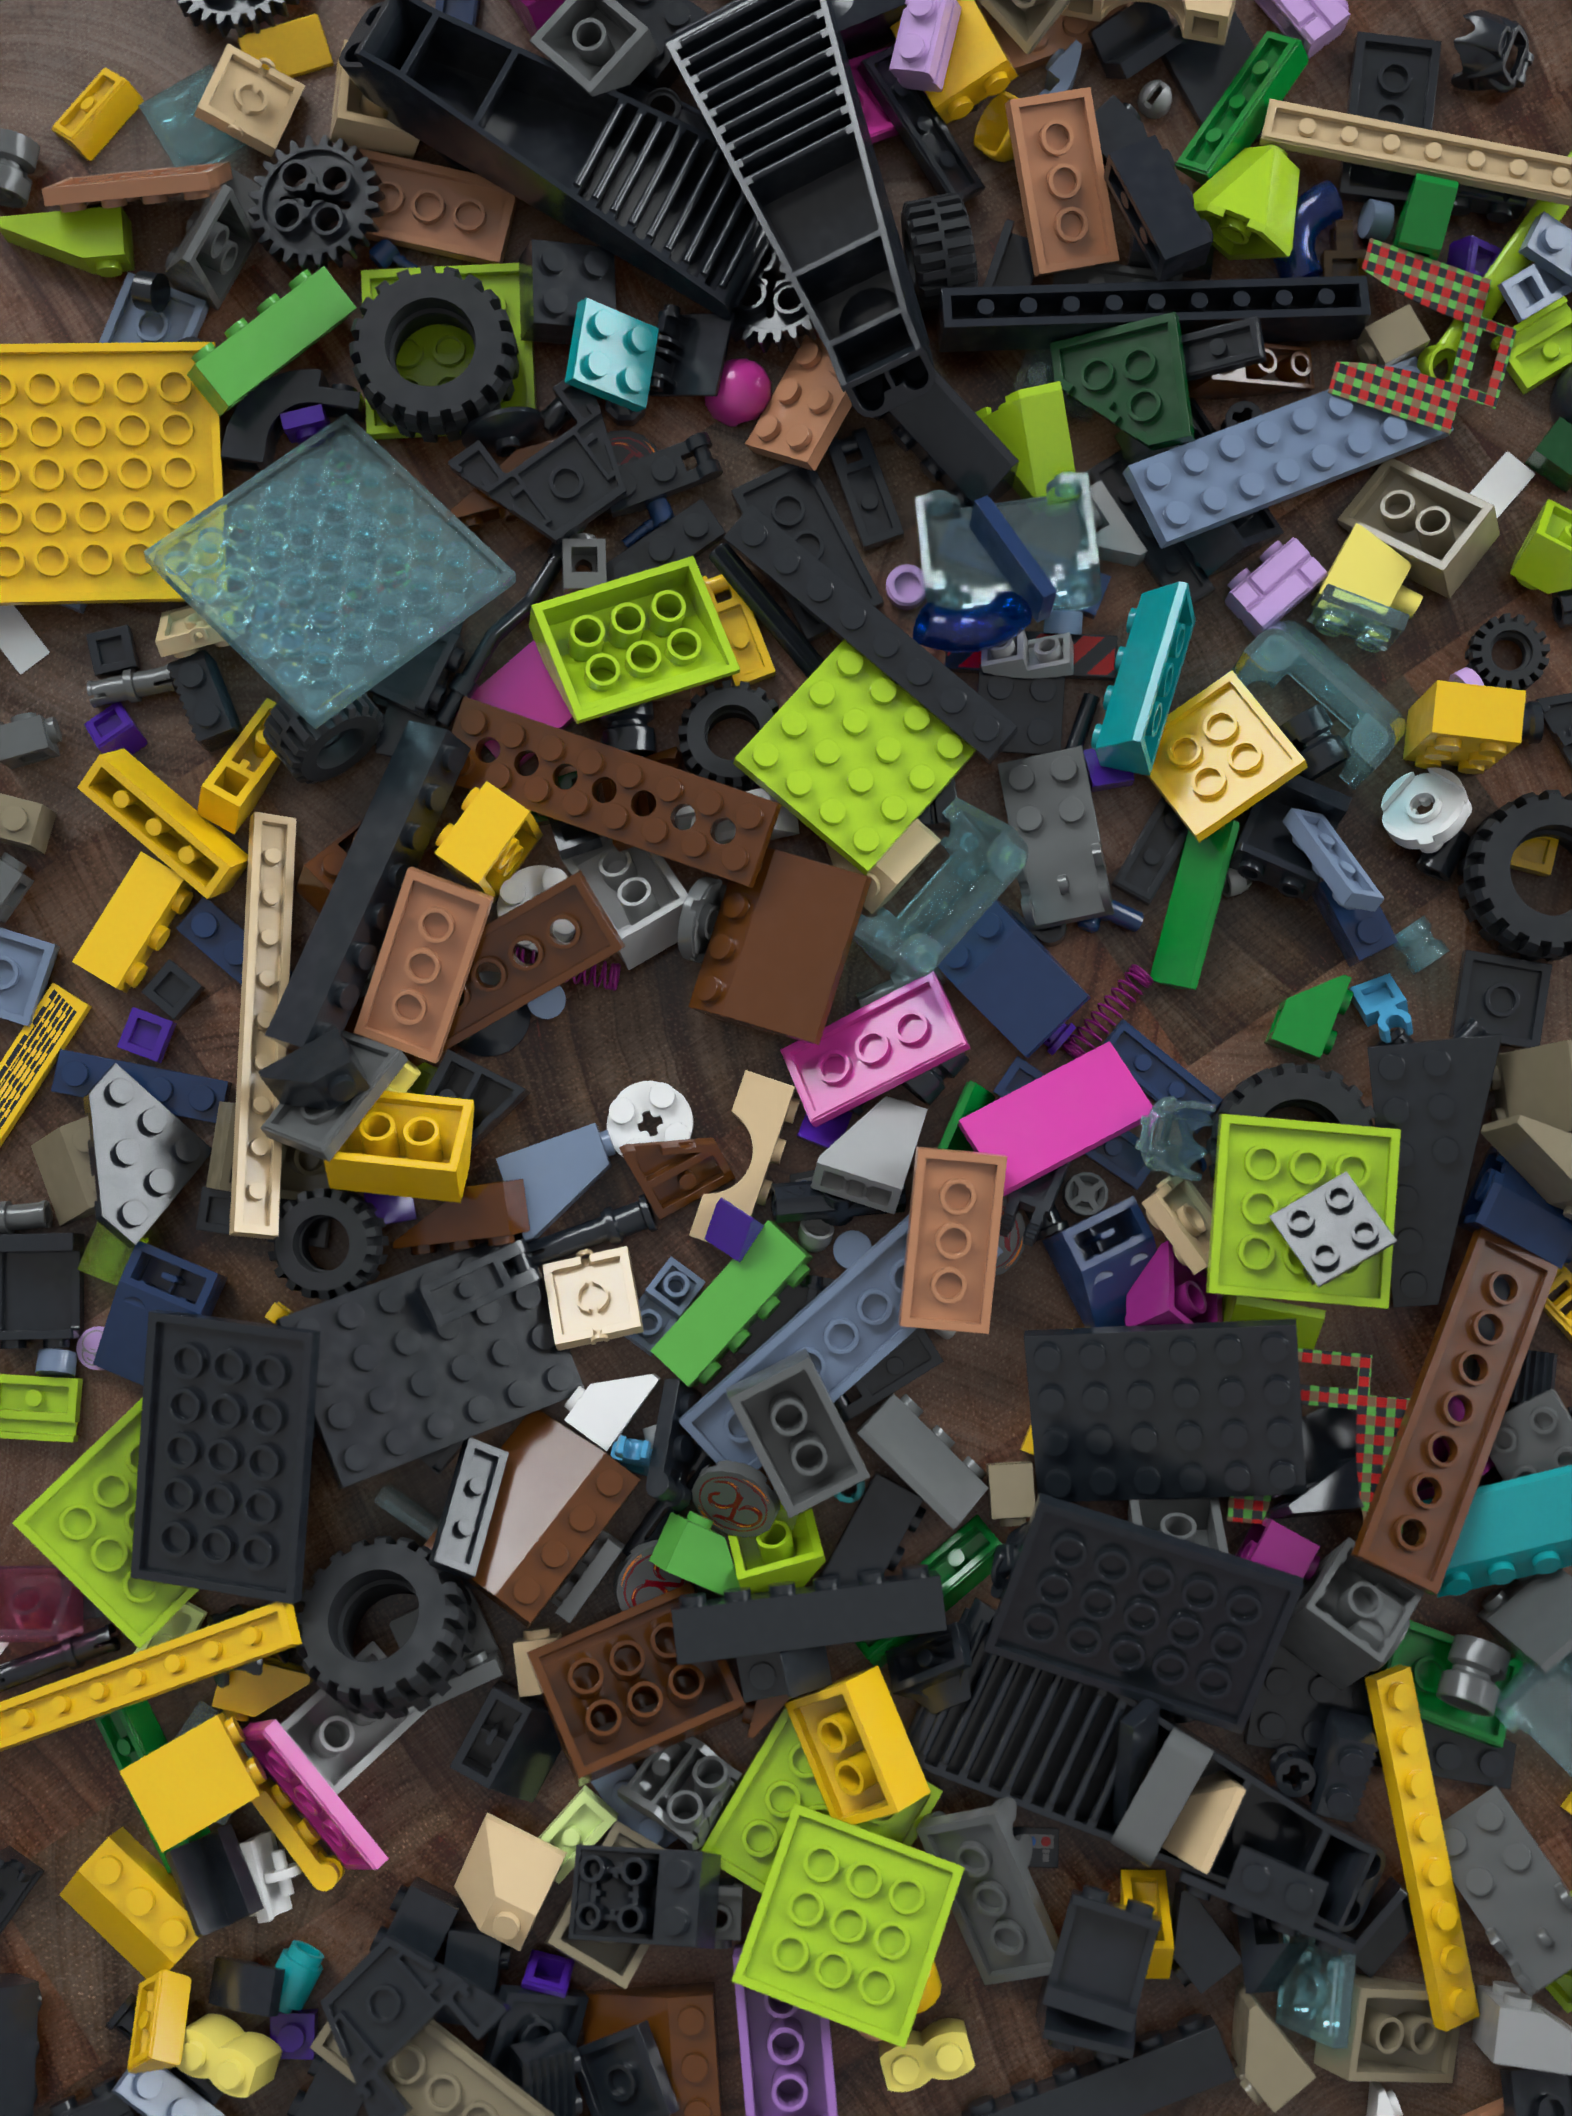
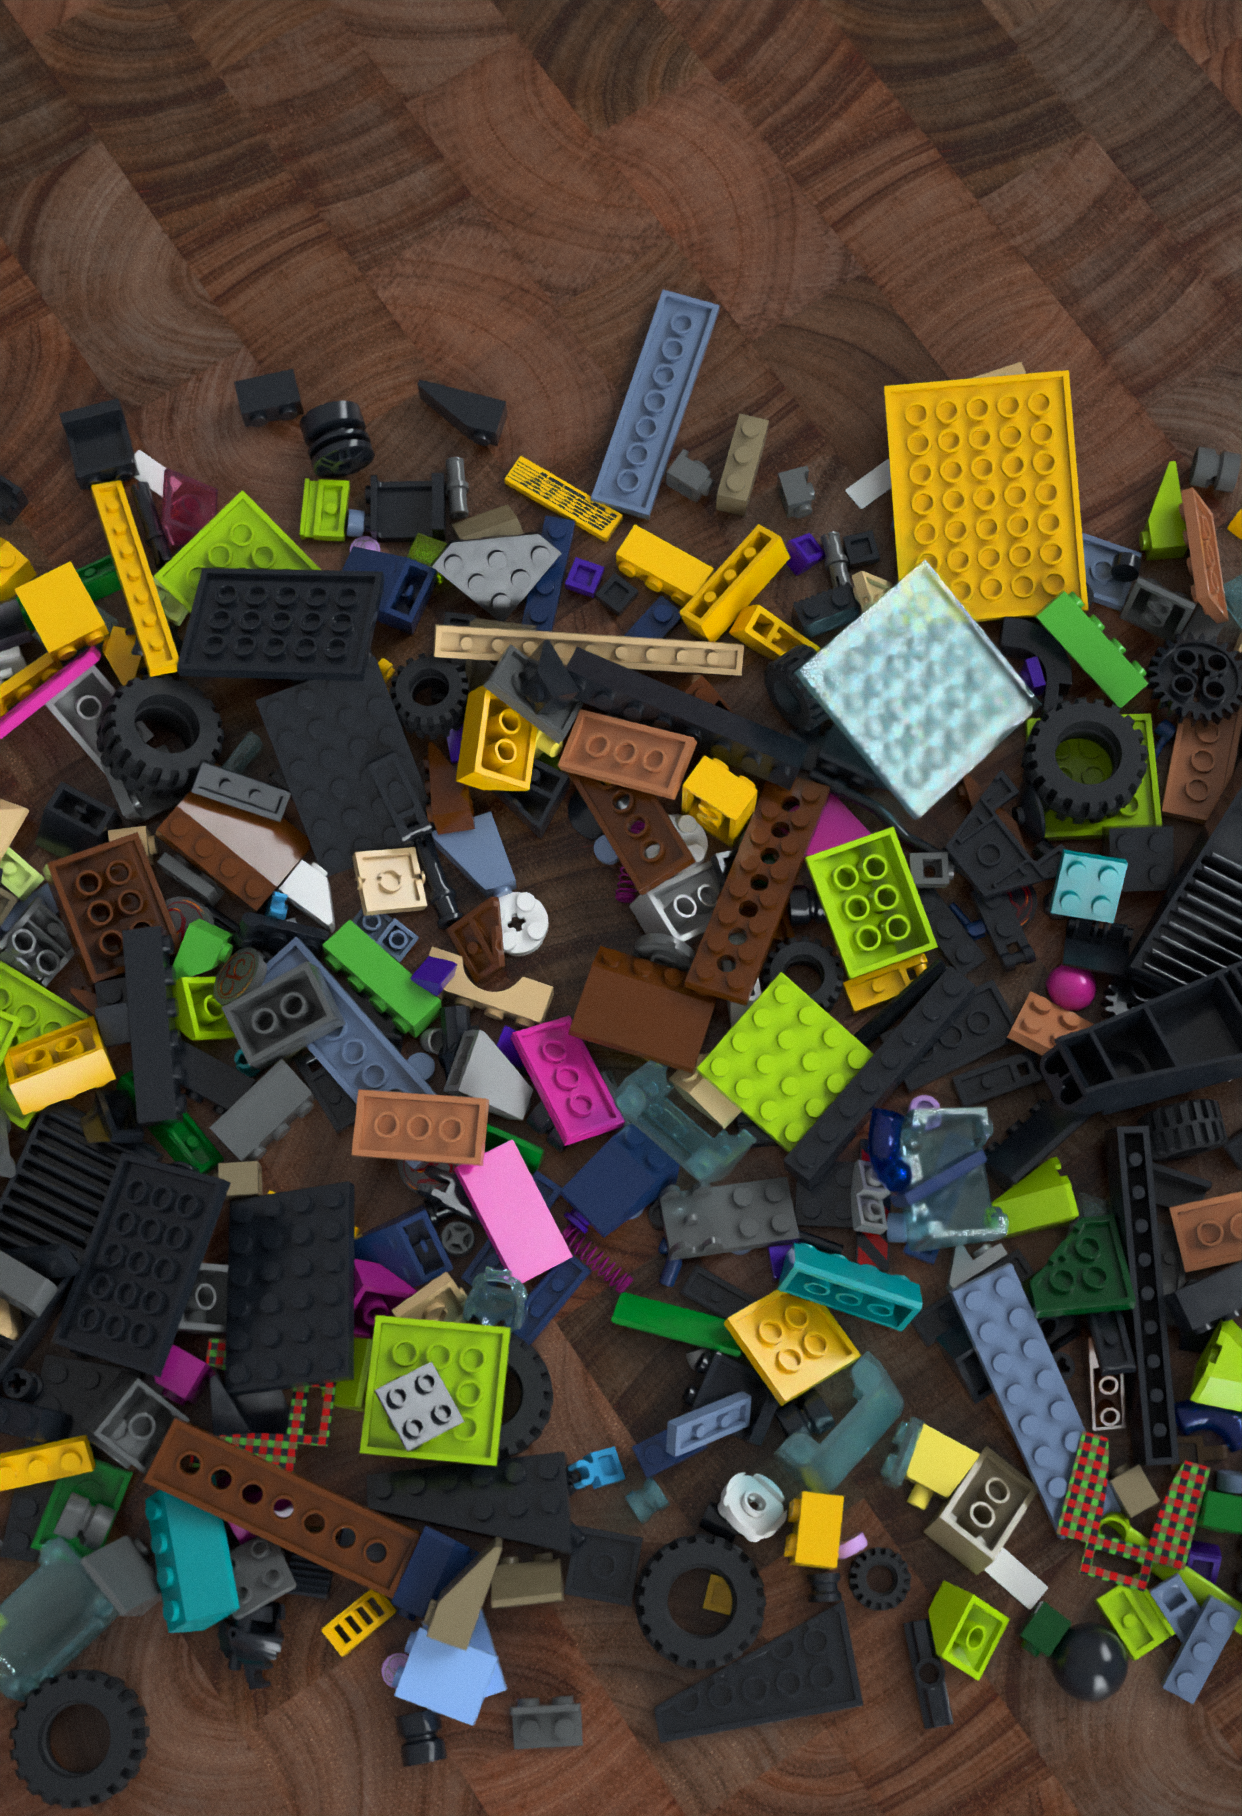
camera: 85 degrees right, 10 degrees down
(1275, 586) = (929, 1392): lavender brick -> none
(1306, 1019) = (589, 1410): green slope -> none

